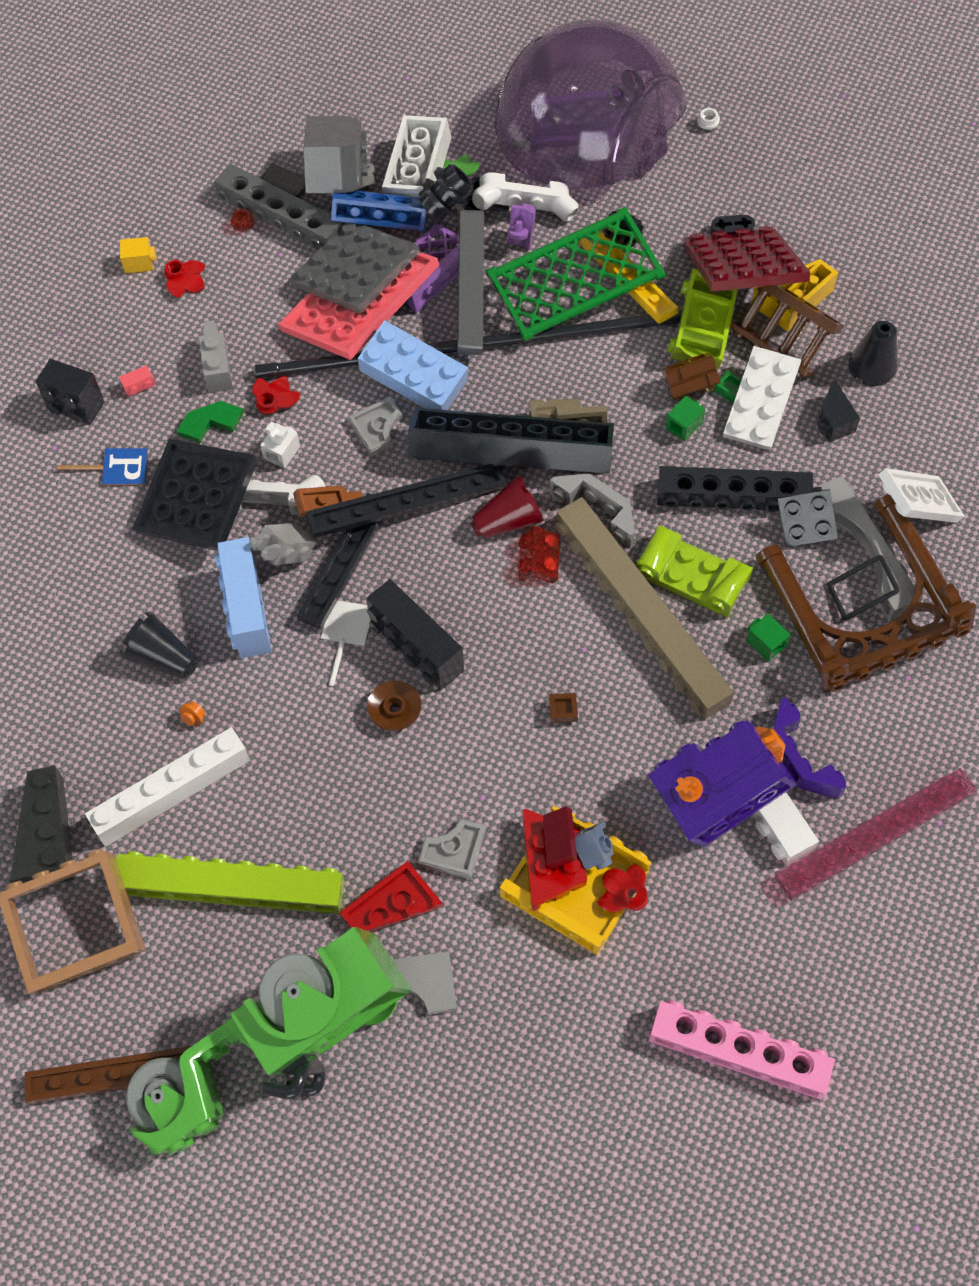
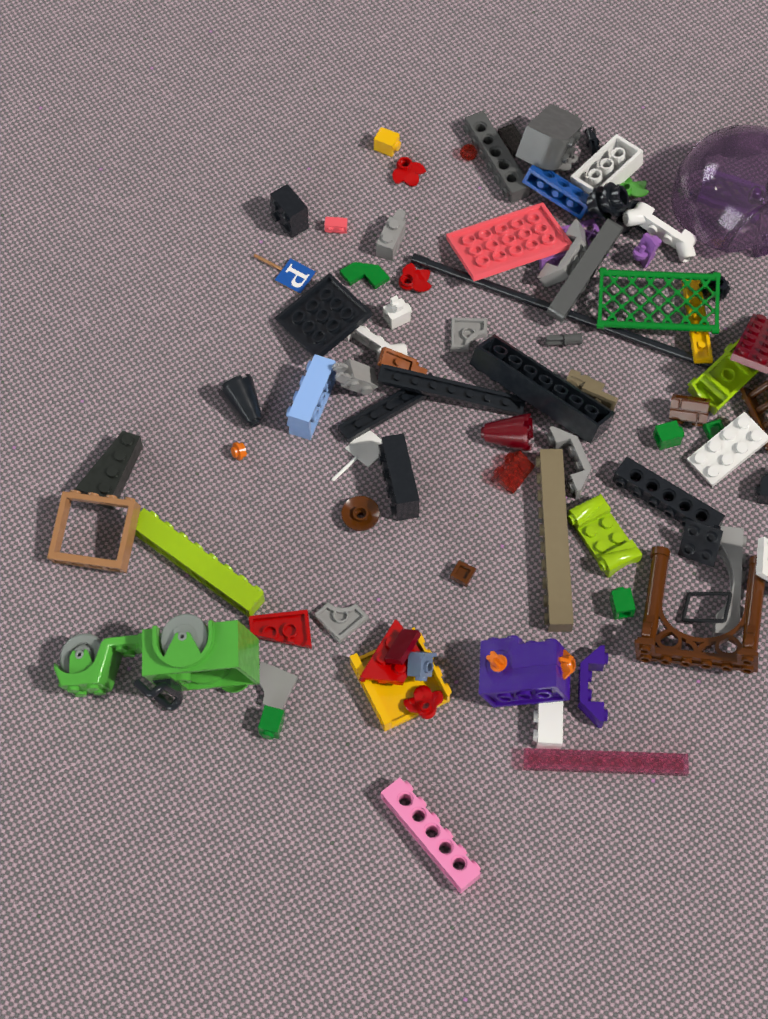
camera: 30 degrees right, 0 degrees up
(88, 1077) = (48, 623): reddish brown plate -> none
(167, 787) = (197, 486): white brick -> none
(354, 266) = (518, 220): dark grey plate -> none
(378, 140) = (592, 140): none -> black axle
(412, 368) = (510, 308): light blue brick -> none
(436, 305) = (554, 274): none -> light grey slope
(456, 1030) = (271, 722): none -> green brick
(495, 373) = (564, 339): none -> dark grey axle

